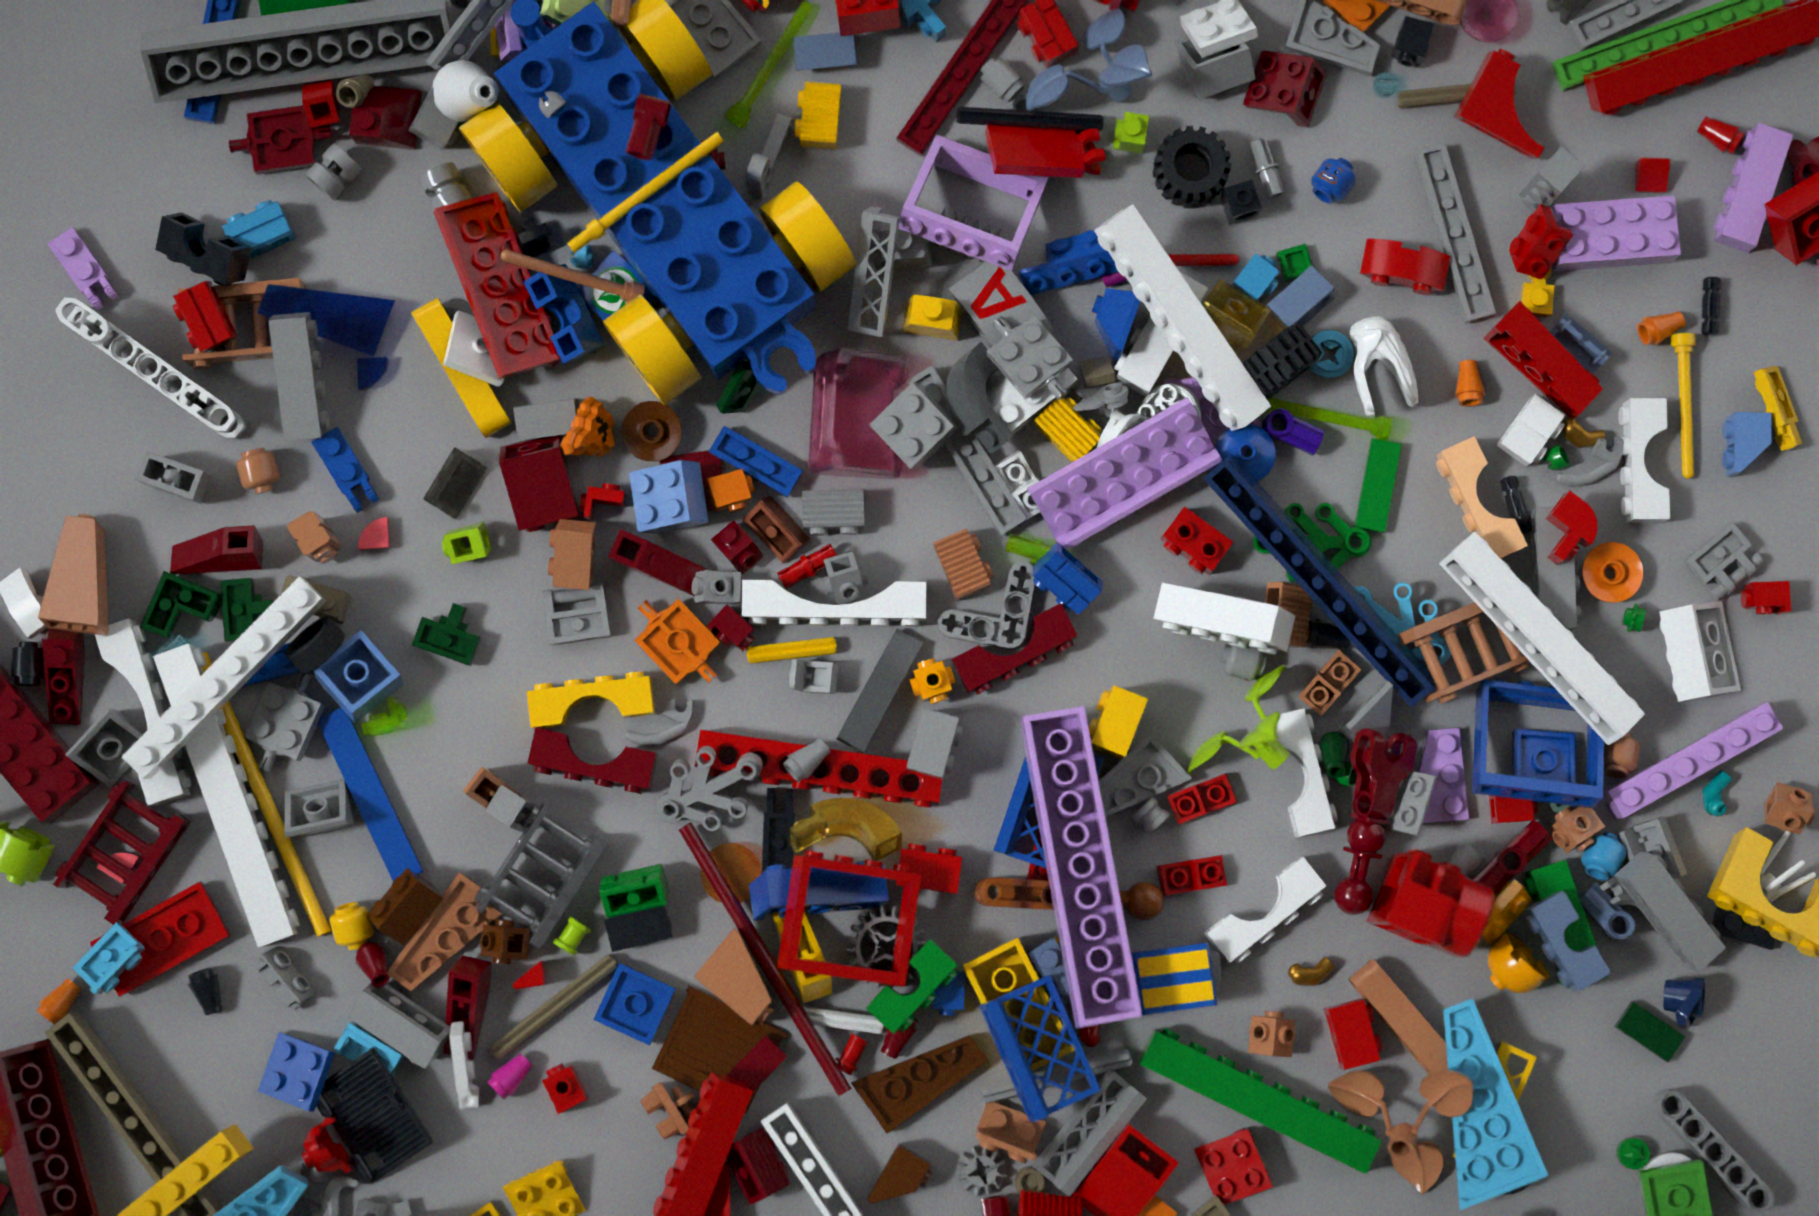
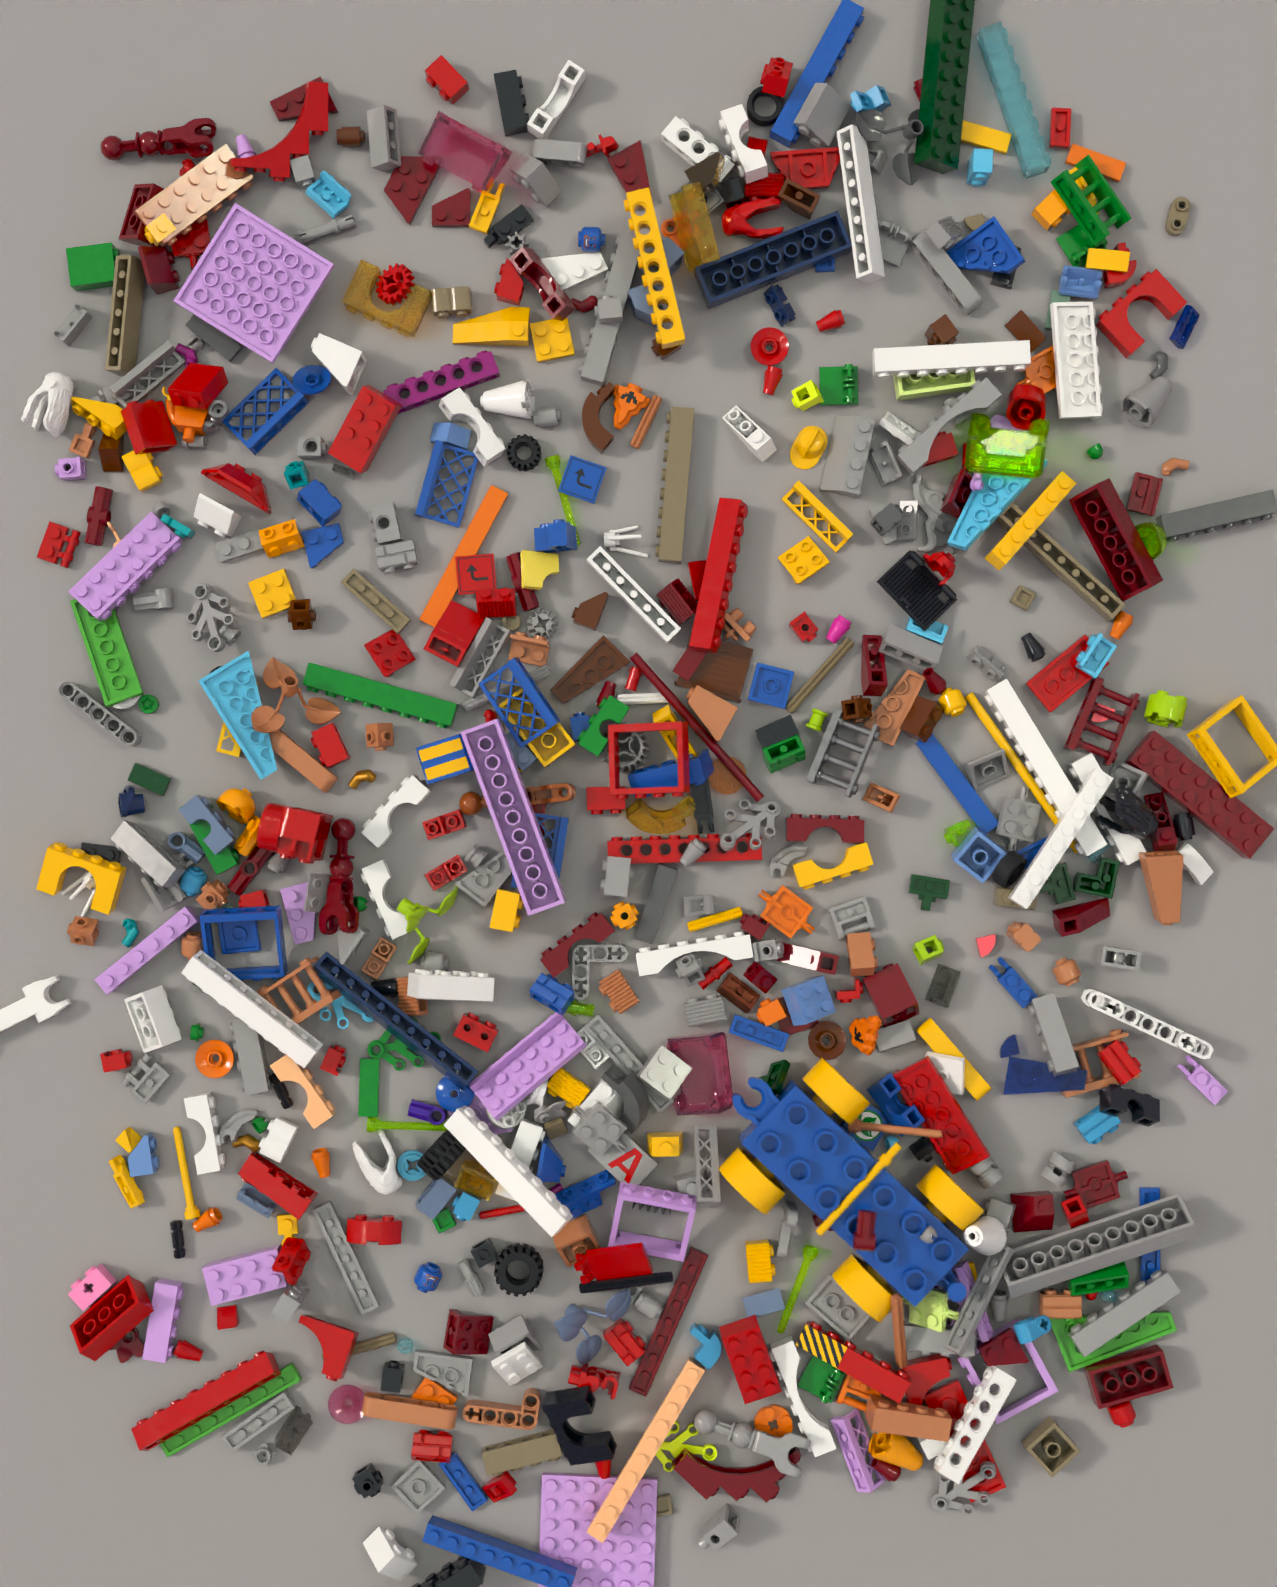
camera: 175 degrees right, 5 degrees up
(103, 700) = (1131, 811): none -> black hair
(206, 1073) = (1023, 598): none -> dark tan tile
(296, 1071) = (968, 608): blue plate -> none
(353, 91) = (1055, 1223): dark tan cone -> none
(463, 1069) = (867, 628): white hinge -> none
(510, 808) = (869, 790): light grey slope -> none
(534, 977) = (835, 690): red slope -> none
(1095, 197) = (575, 1239): none -> nougat slope
(1131, 133) = (560, 1285): lime brick -> none
(1334, 753) = (369, 915): dark green cone -> none
(1425, 537) = (334, 1059): none -> red brick
(1577, 522) = (240, 1085): red brick -> none
(1764, 471) = (128, 1139): none -> yellow slope

